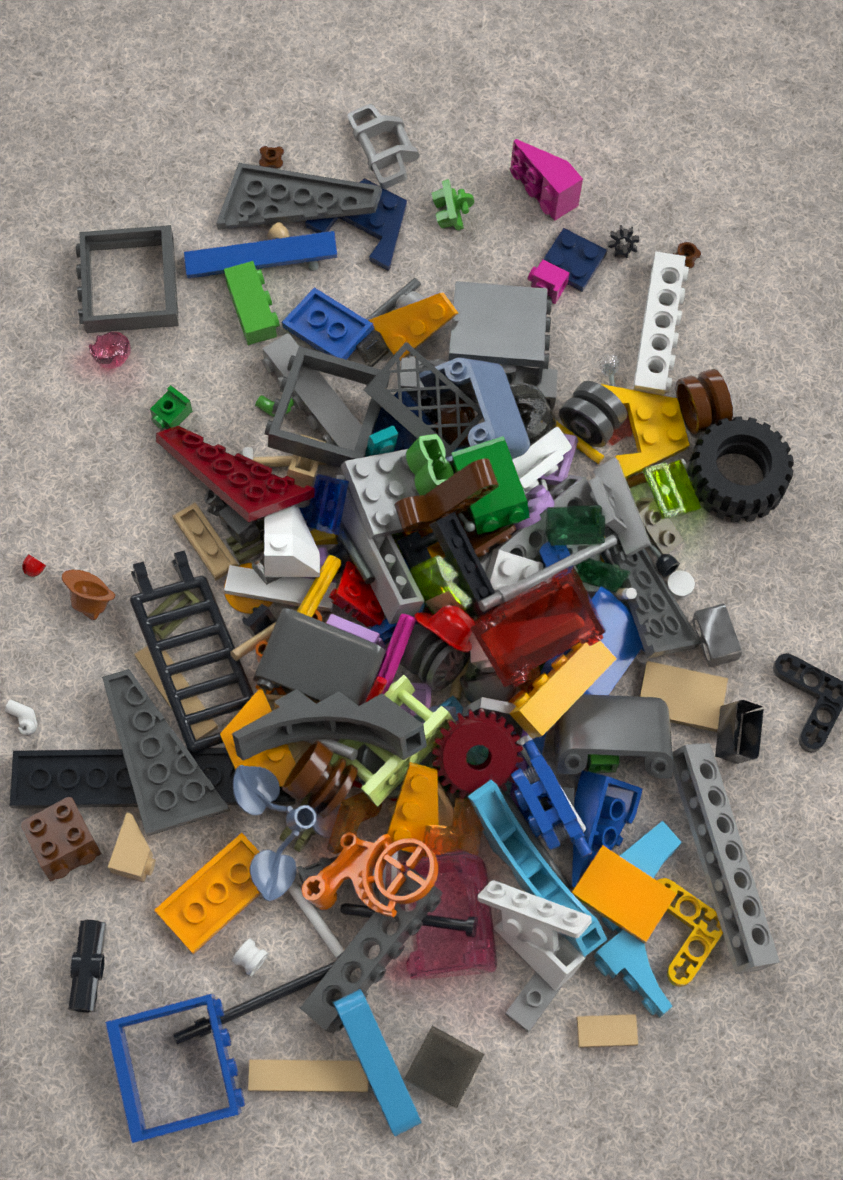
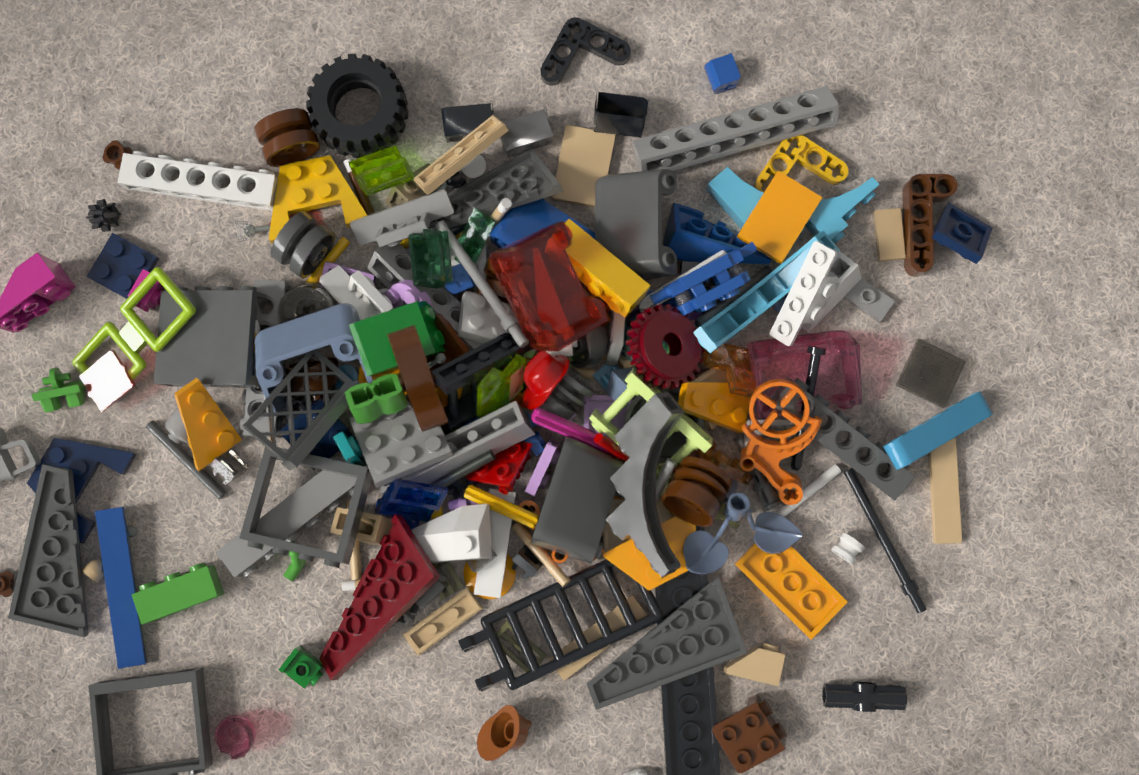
camera: 90 degrees left, 15 degrees up
(127, 1079) = (996, 594): blue window -> none
(327, 325) = (204, 512): blue plate -> none
(459, 243) = (107, 380): none -> piece
(502, 264) = (135, 333): none -> lime bar
(607, 1111) = (962, 233): none -> dark blue plate
(617, 1067) = (924, 225): none -> reddish brown beam
(688, 561) = (460, 154): none -> tan tile
(727, 577) = (464, 119): none -> black piece
(790, 847) = (722, 73): none -> blue piece

